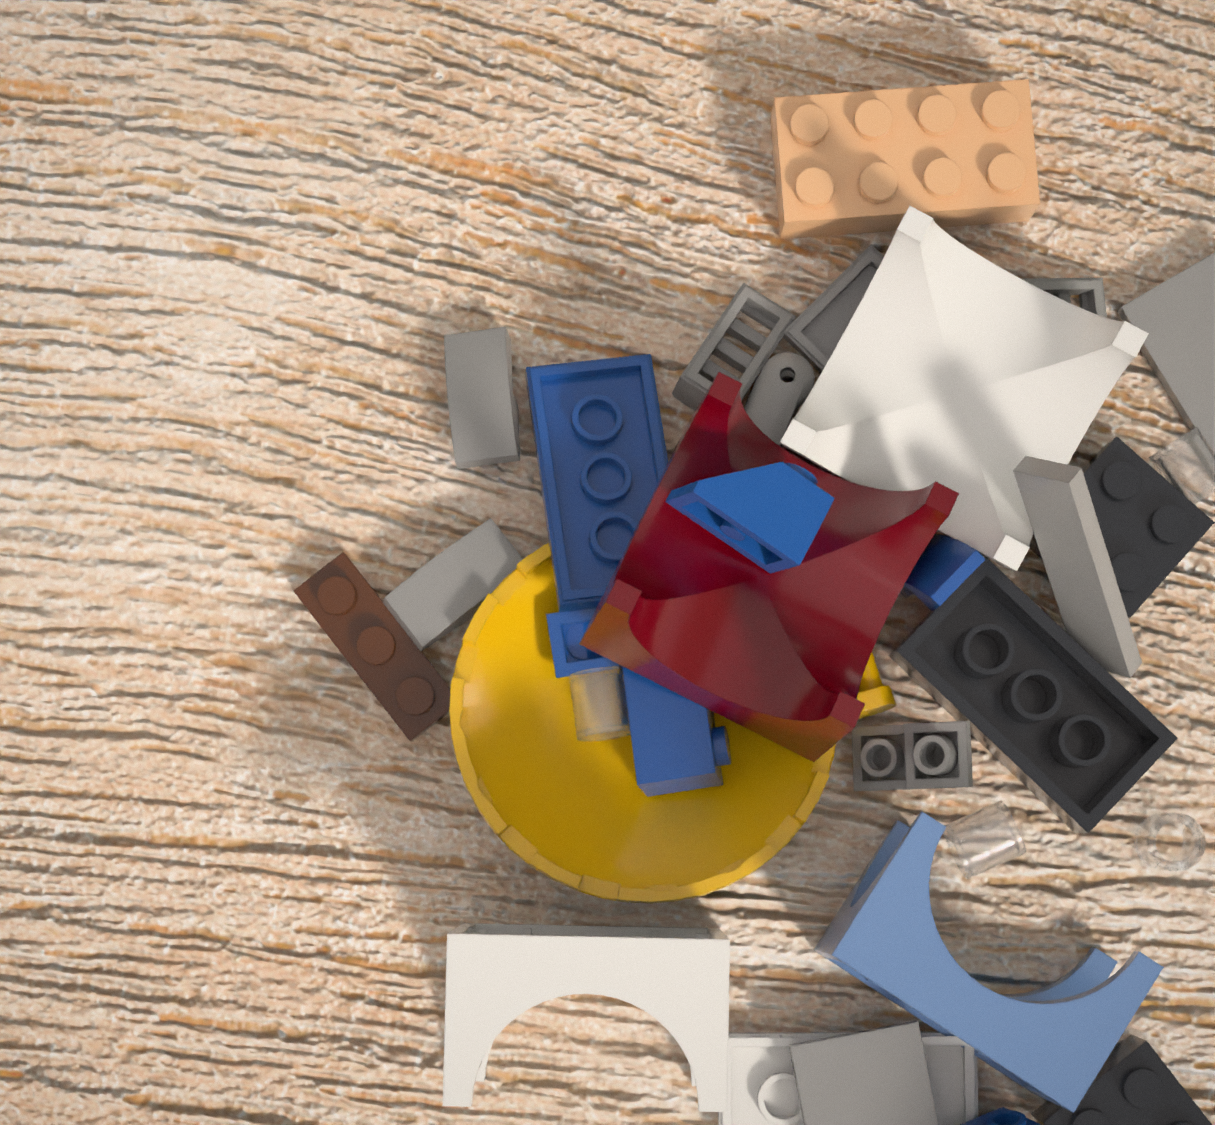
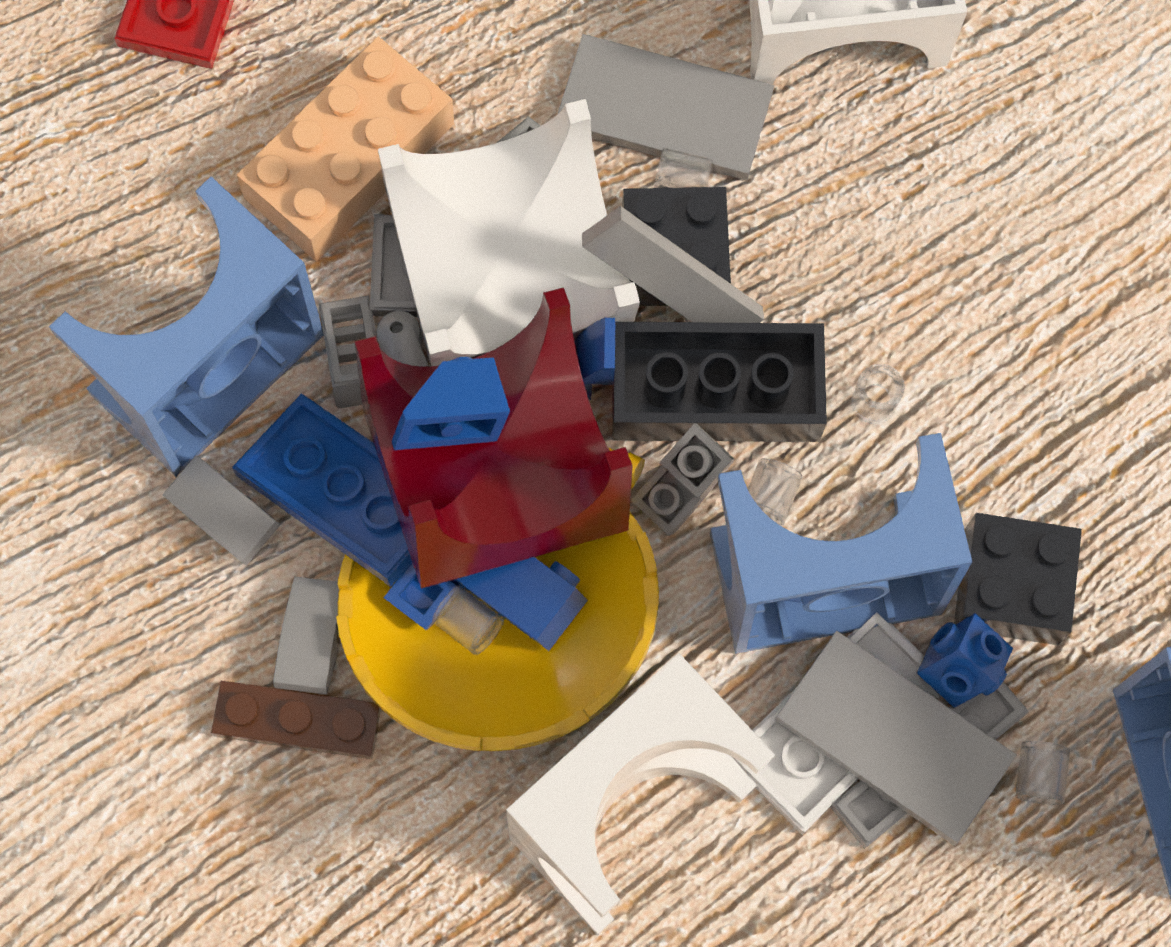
camera: 50 degrees left, 10 degrees down
(627, 264) = (204, 370): none -> medium blue piece

